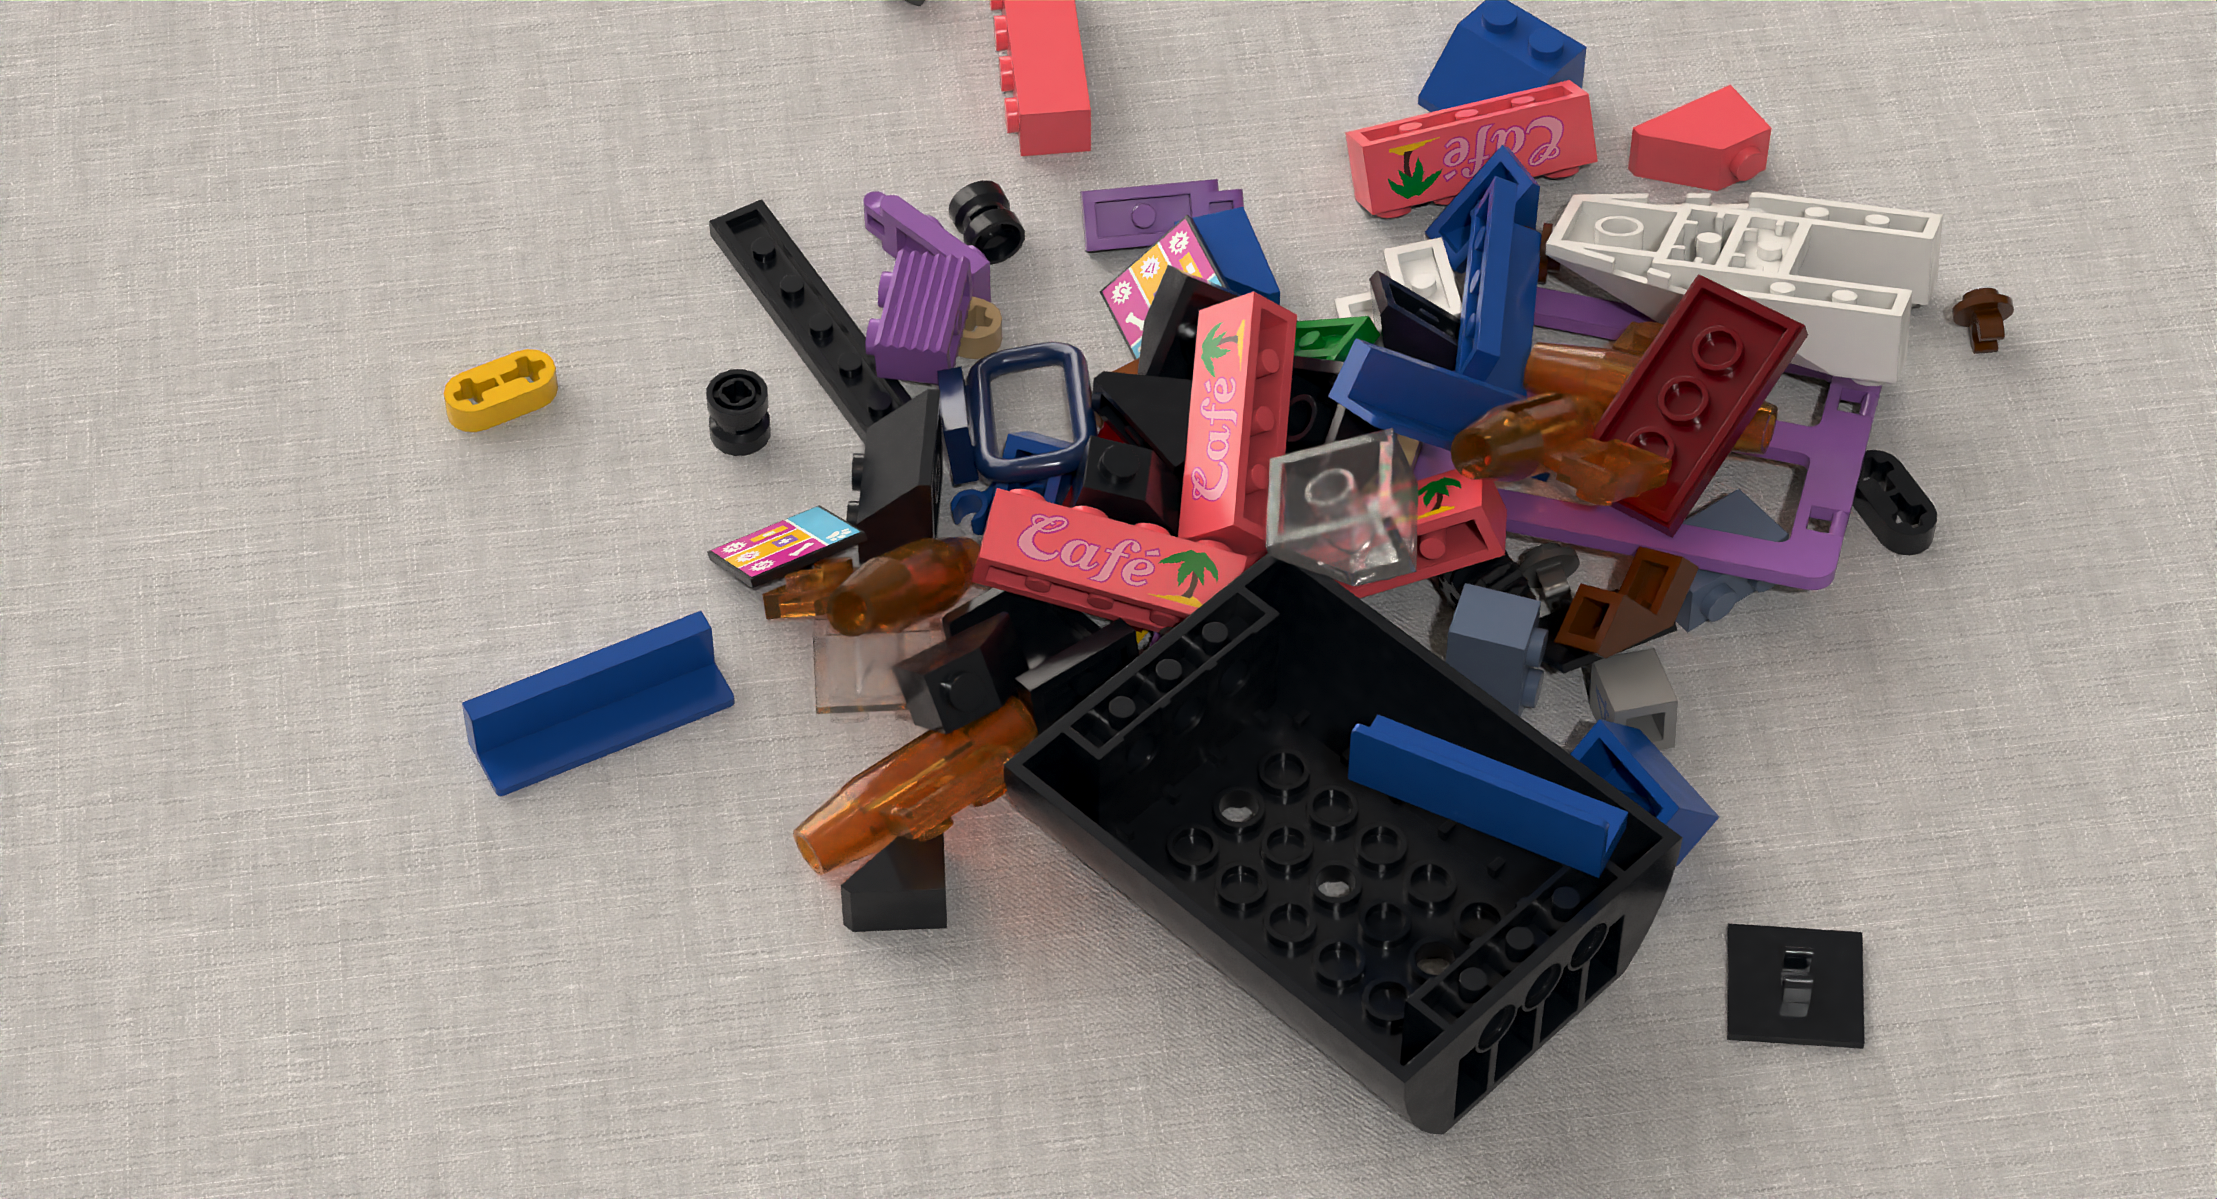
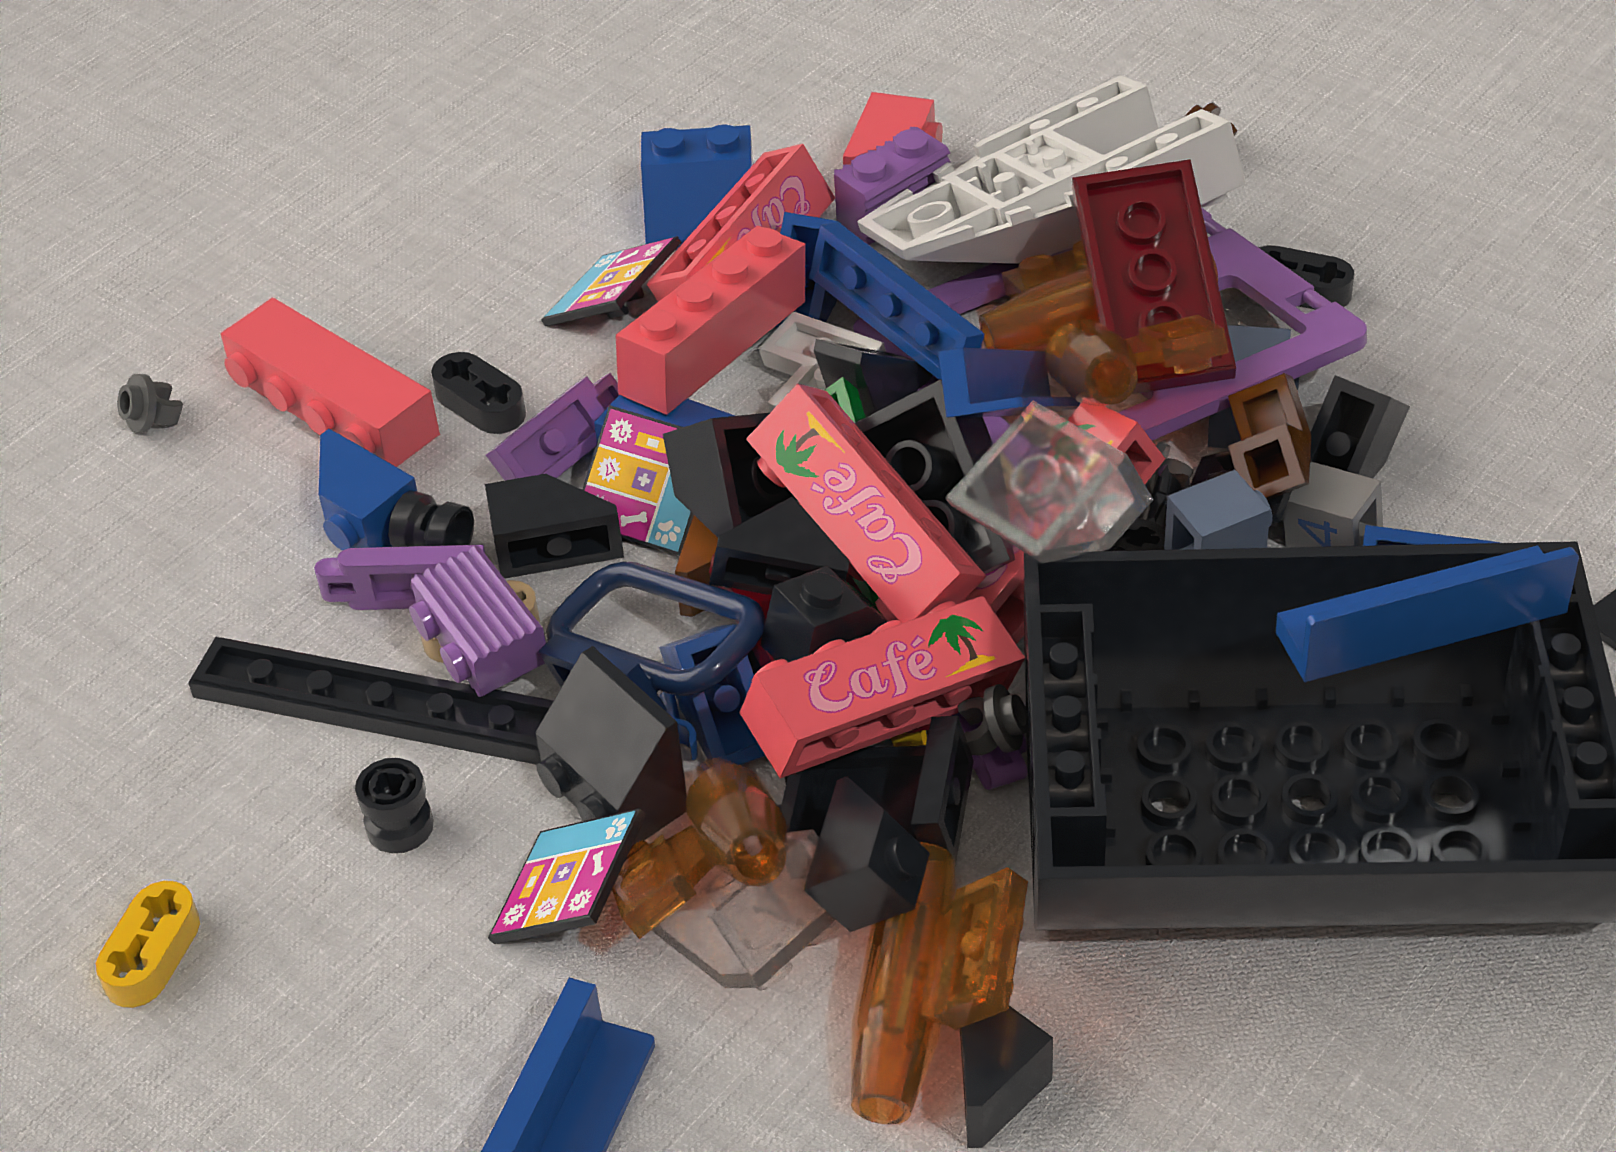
camera: 40 degrees left, 5 degrees down
(958, 153) = (357, 493): none -> blue slope
(1061, 279) = (550, 525): none -> black slope
(1141, 136) = (486, 385): none -> black beam
(1339, 112) = (612, 282): none -> piece
(1343, 197) = (710, 319): none -> coral brick
(1655, 167) = (884, 174): none -> medium lavender brick
(1732, 656) = (1356, 428): none -> black slope

